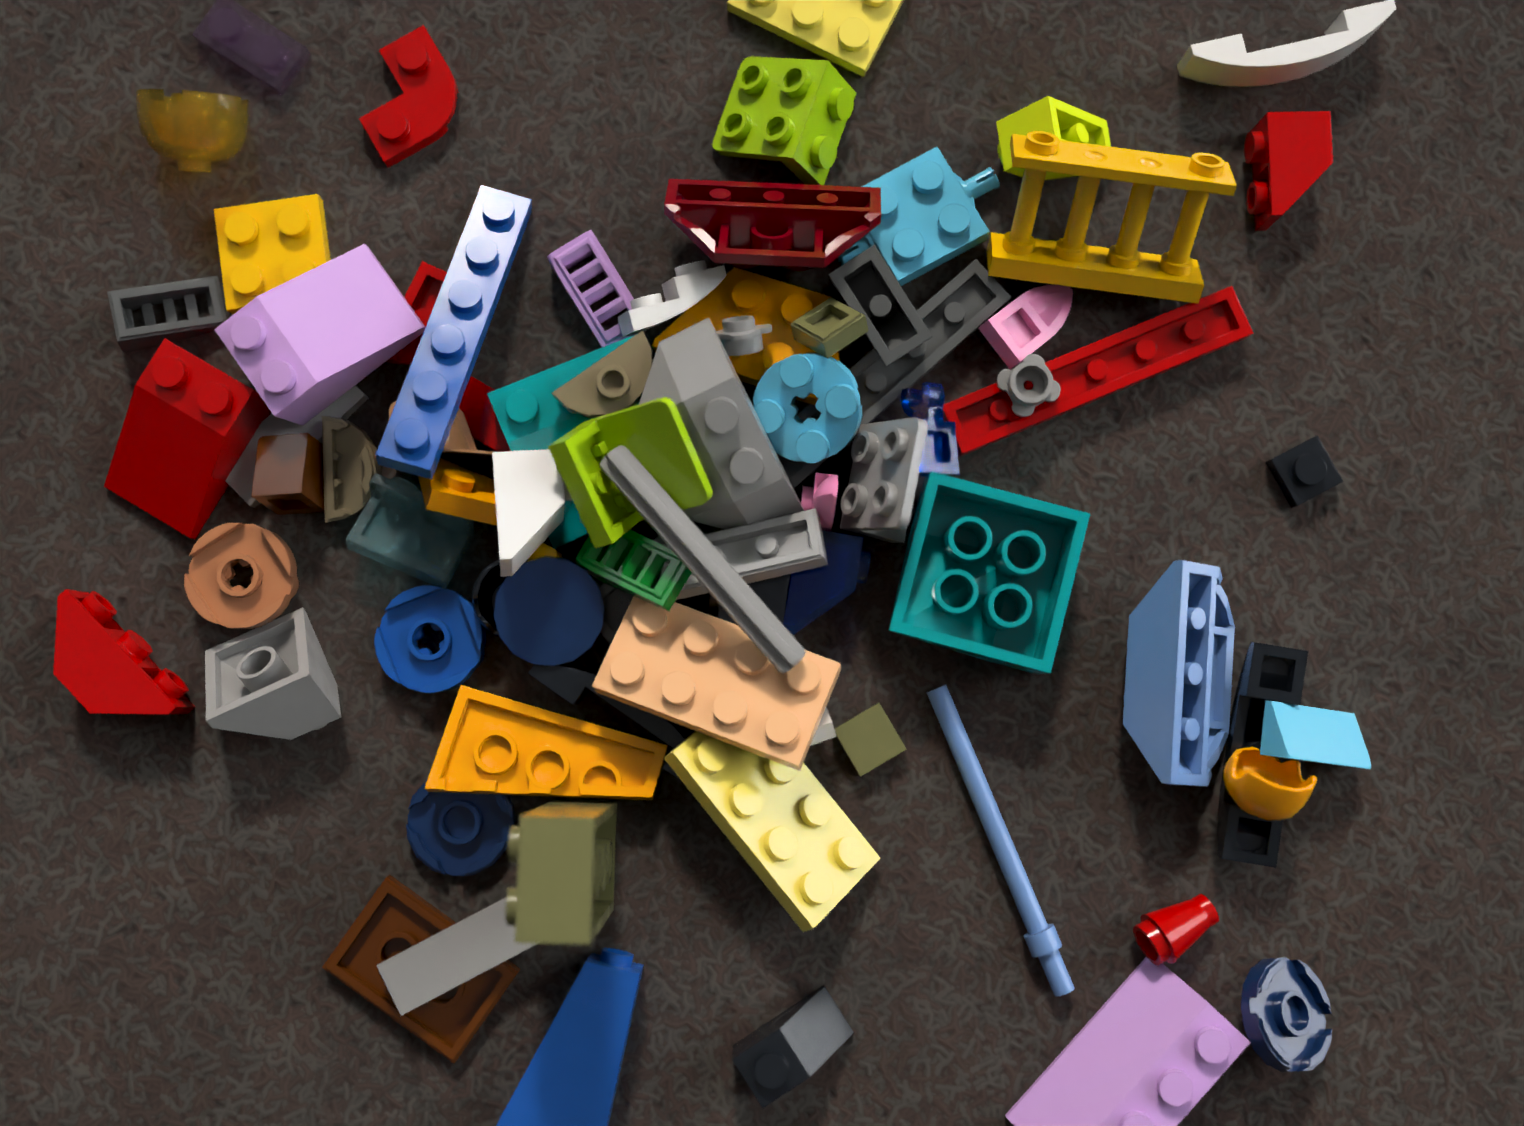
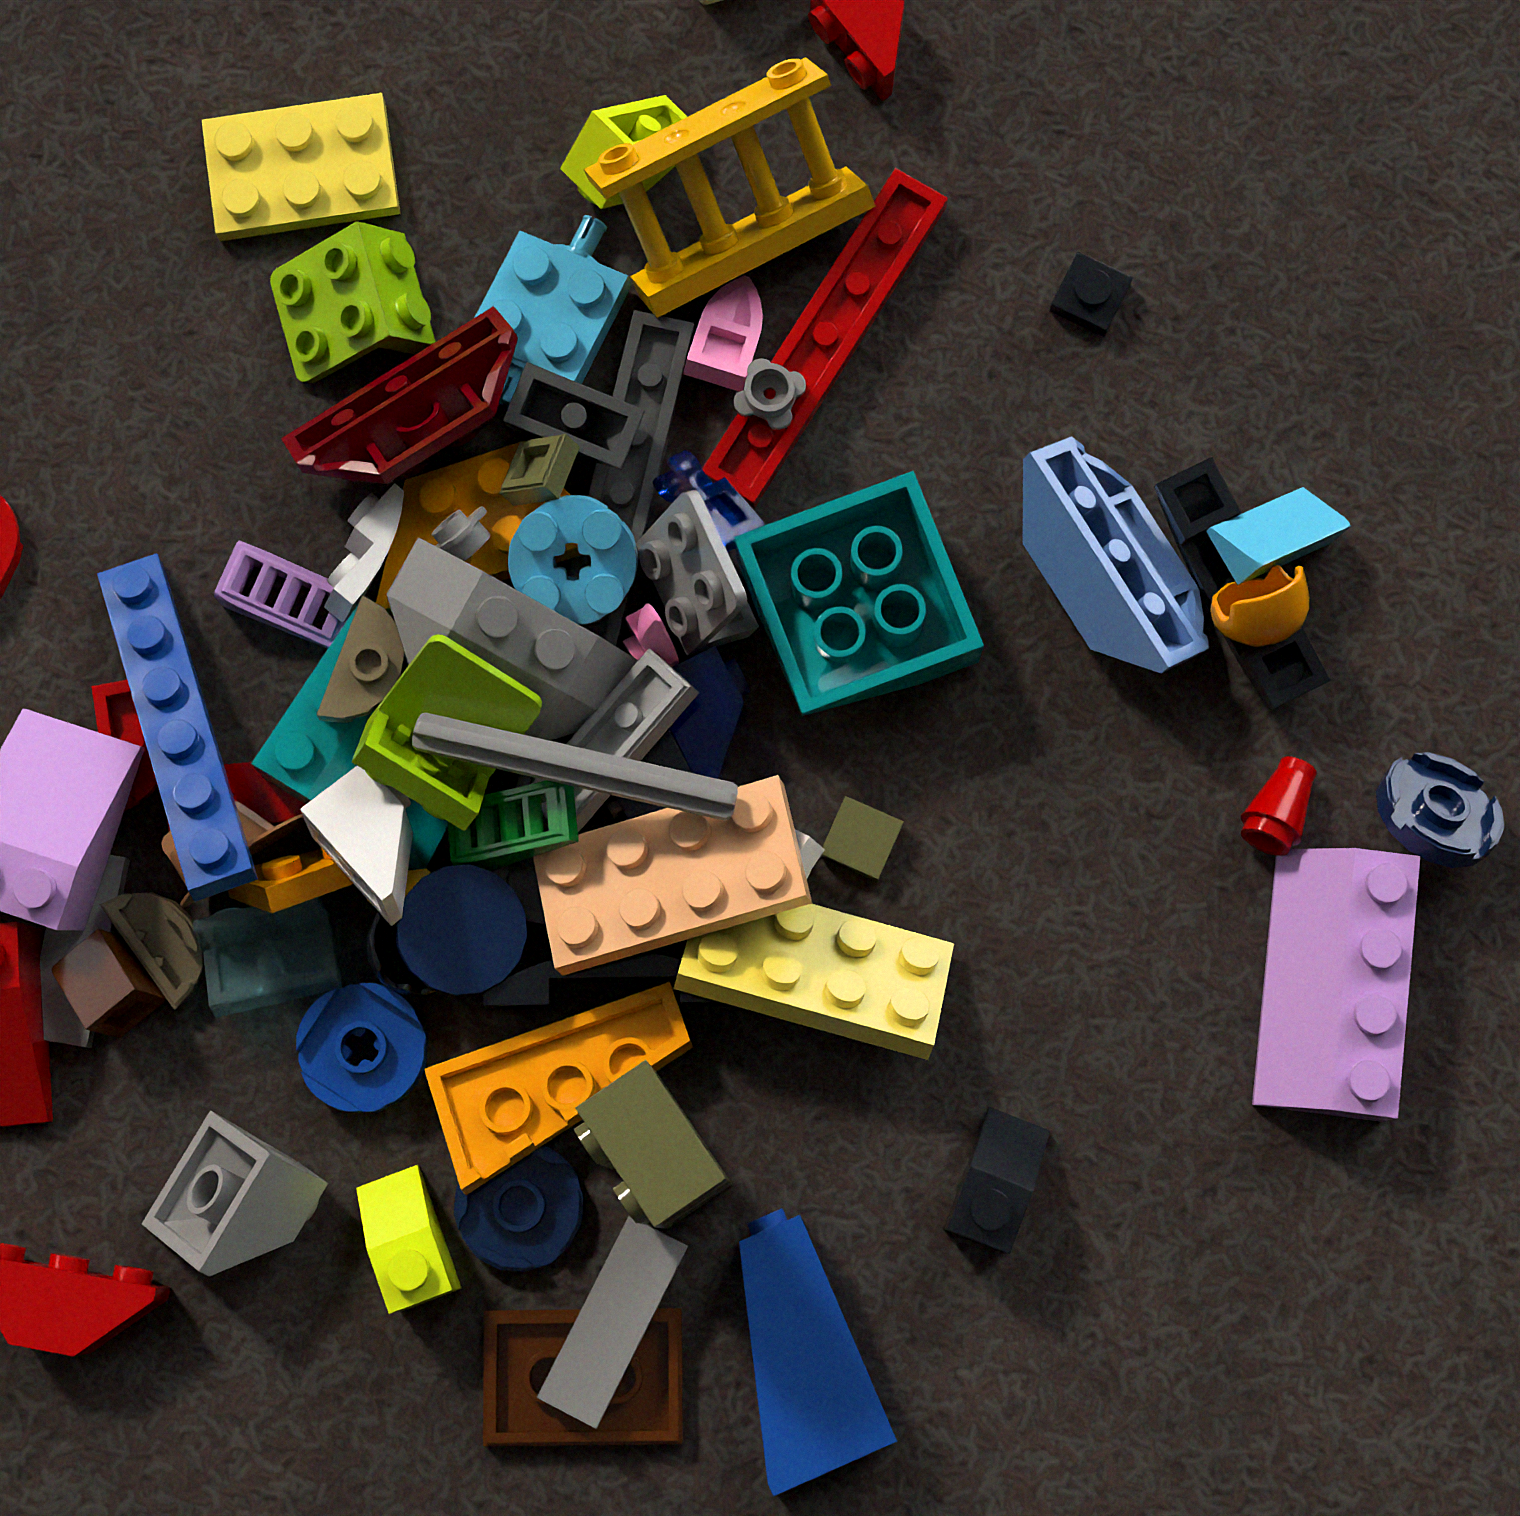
camera: 30 degrees left, 5 degrees down
(212, 565) = (93, 1138): nougat plate -> none
(365, 794) = (405, 1241): none -> neon yellow slope
(1040, 937) = (1162, 908): medium blue bar -> none

